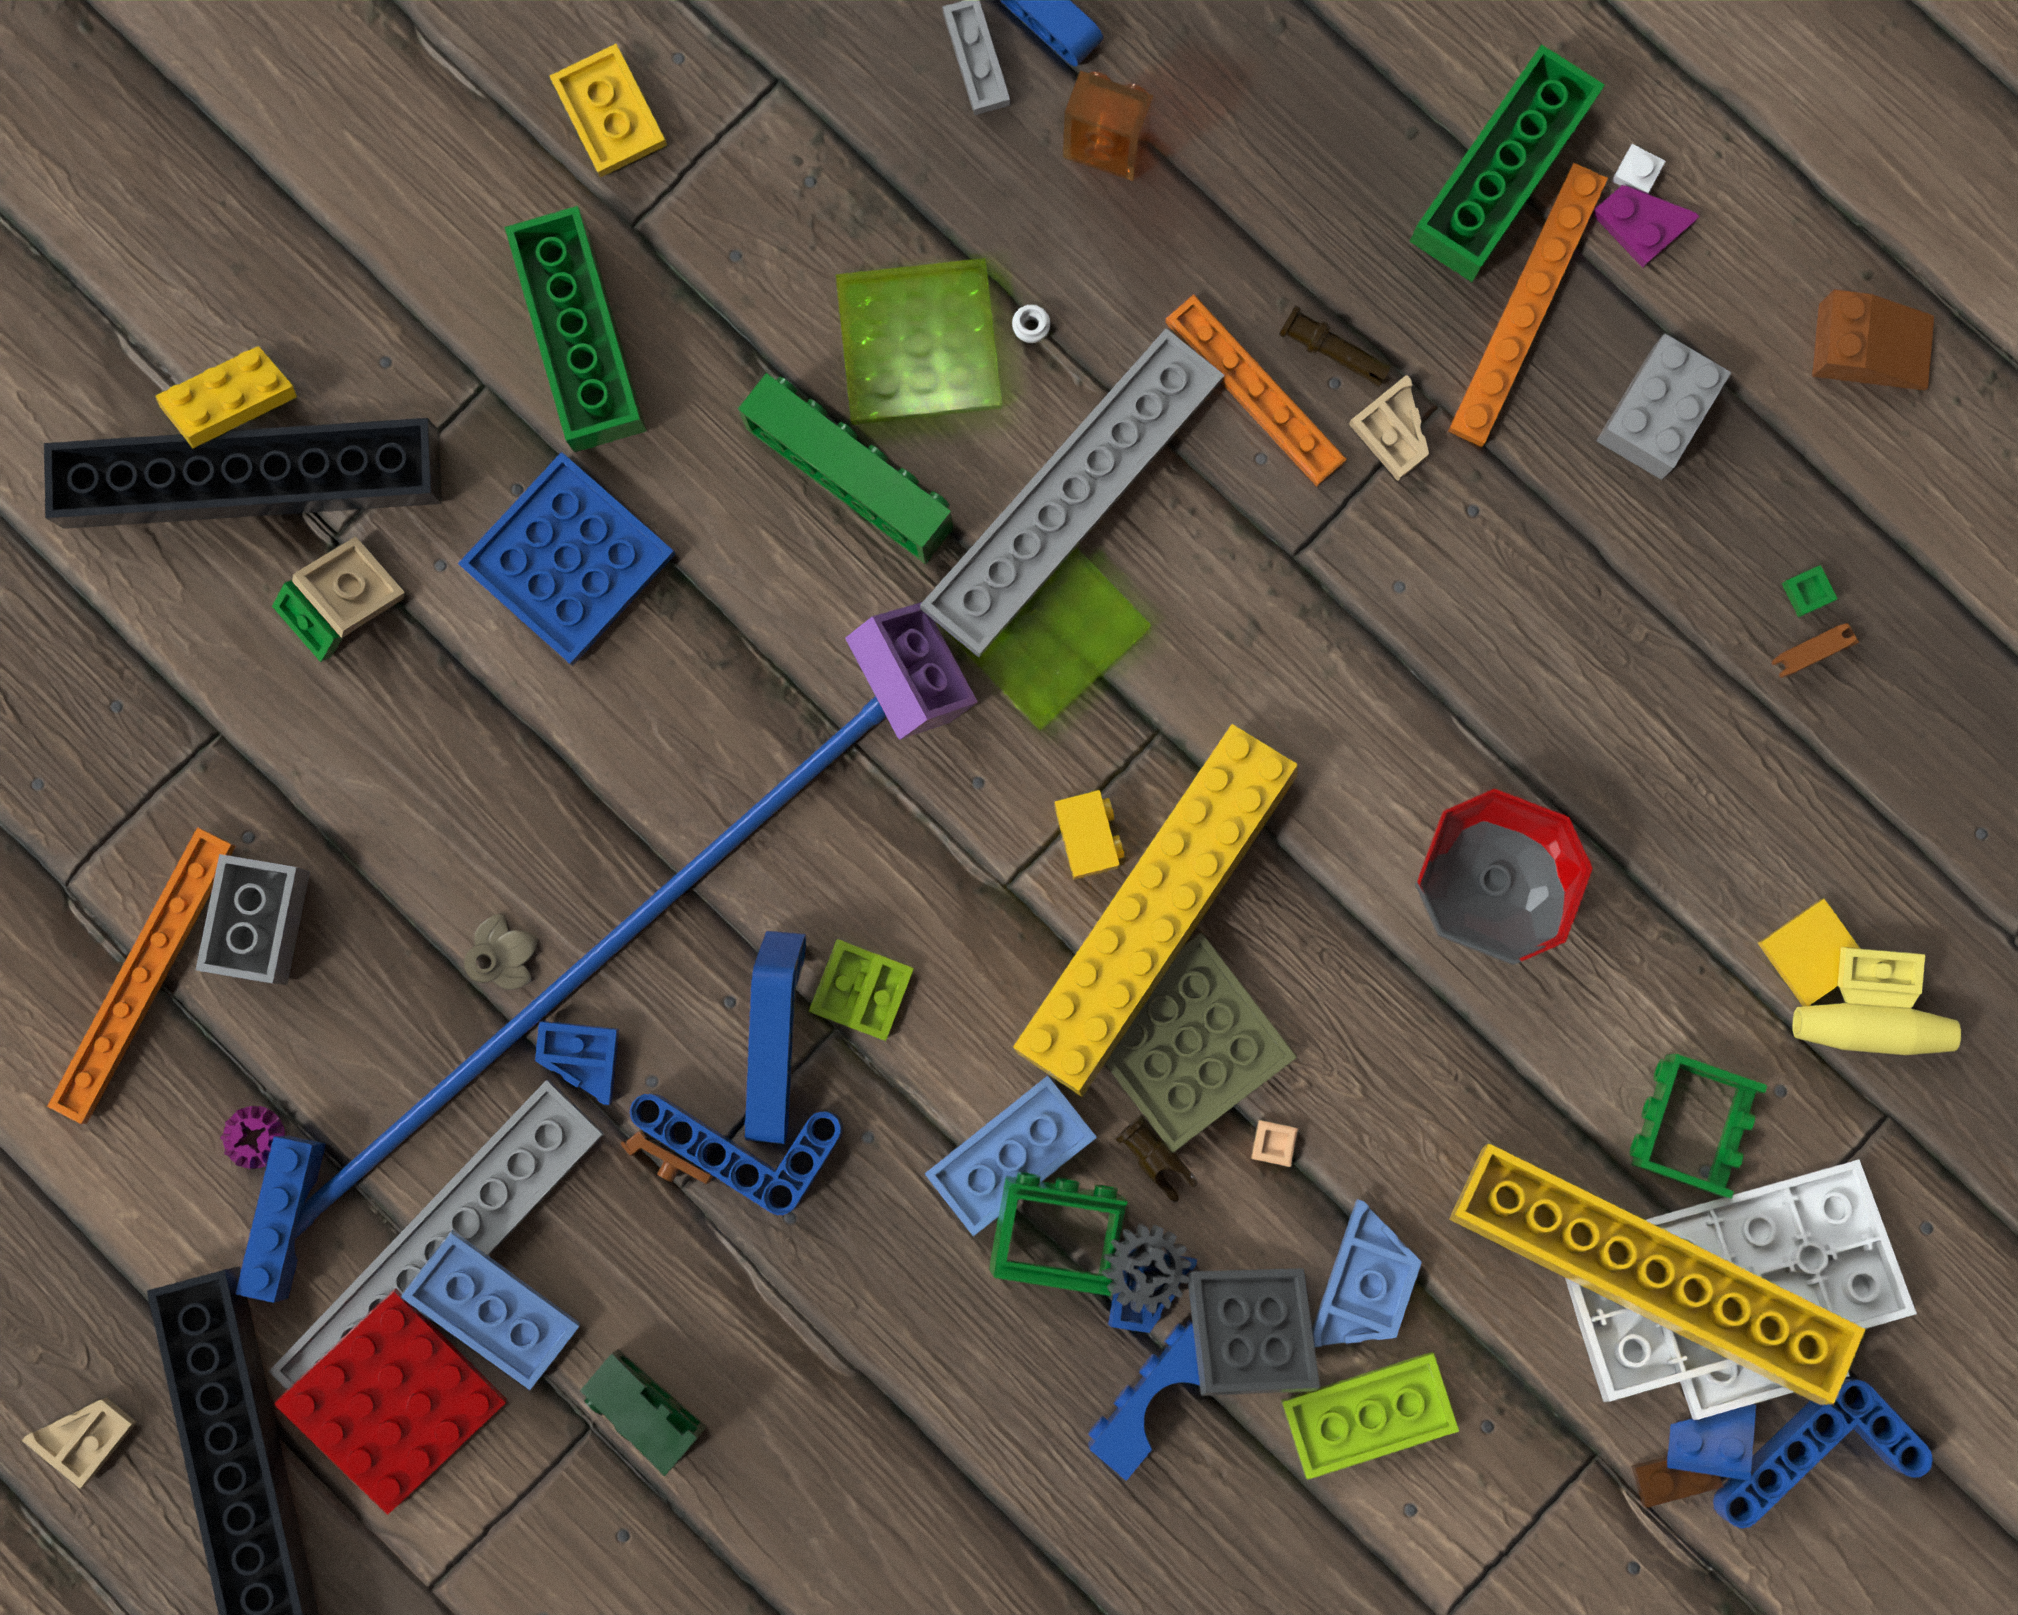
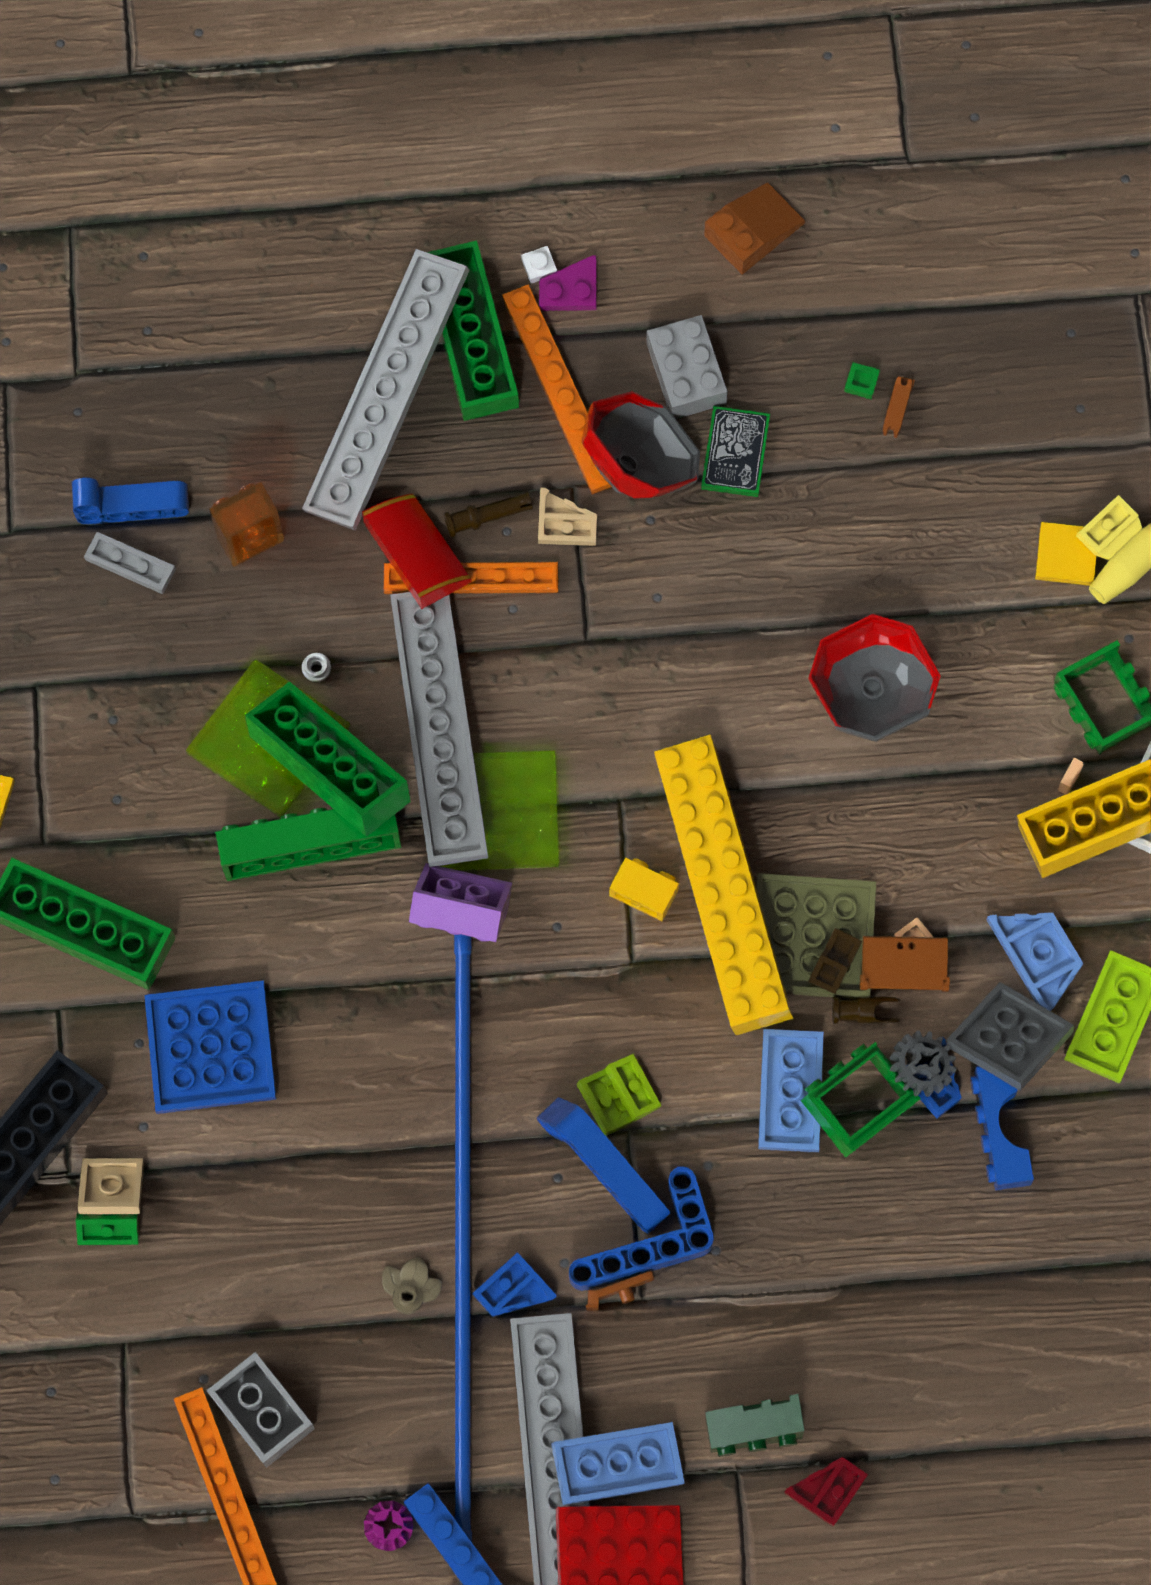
camera: 50 degrees left, 10 degrees down
(643, 1537) = (828, 1490): none -> dark red wing
(933, 415) = (328, 758): none -> green brick
(1177, 1088) = (835, 961): none -> dark brown slope
(1231, 1162) = (895, 965): none -> dark orange door
(1235, 311) = (415, 549): none -> red slope
(1372, 134) = (385, 389): none -> light grey plate
(1535, 432) = (639, 446): none -> dark grey rock
(1581, 1158) = (1070, 776): none -> light nougat tile
(1620, 531) = (735, 451): none -> tile

